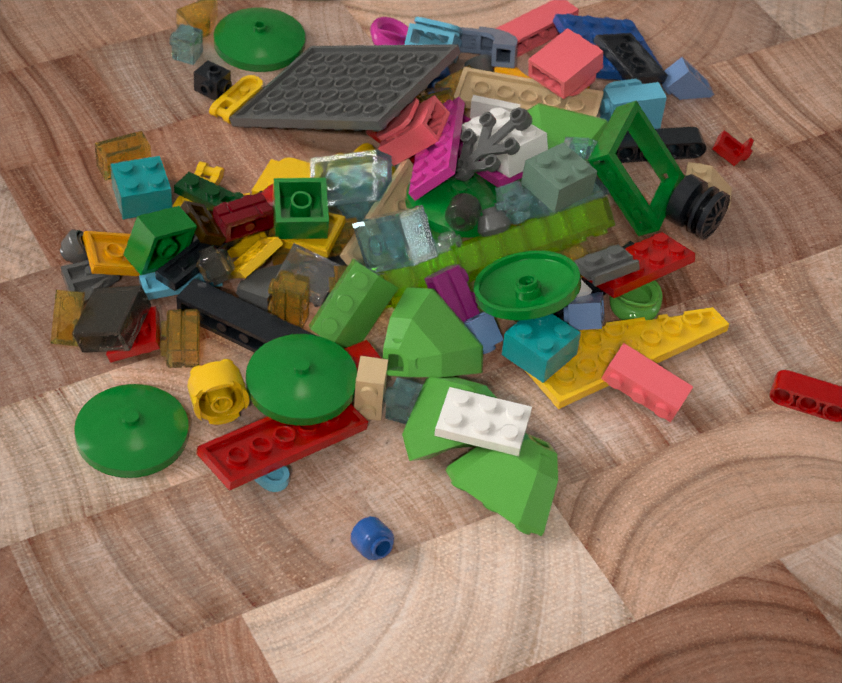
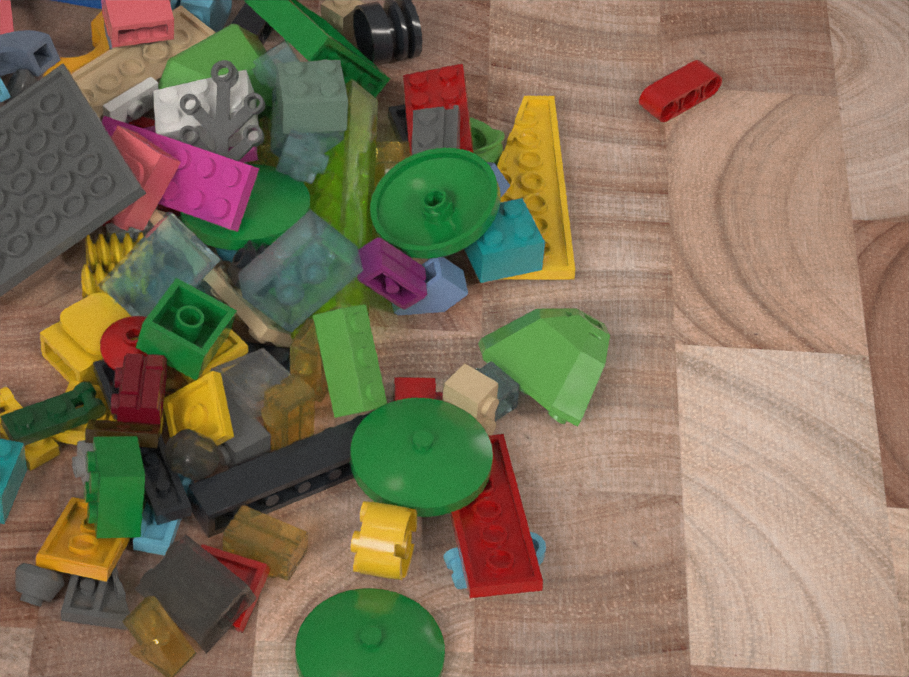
camera: 60 degrees left, 0 degrees up
(372, 538) = (665, 503): blue head -> none
(429, 339) = (436, 322): bright green brick -> none
(463, 212) = (294, 197): clear smoke head -> none
(483, 421) = (600, 328): white plate -> none
(493, 222) = (319, 186): dark grey cone -> none
(511, 485) = (662, 352): bright green brick -> none
(646, 382) = (598, 191): coral brick -> none

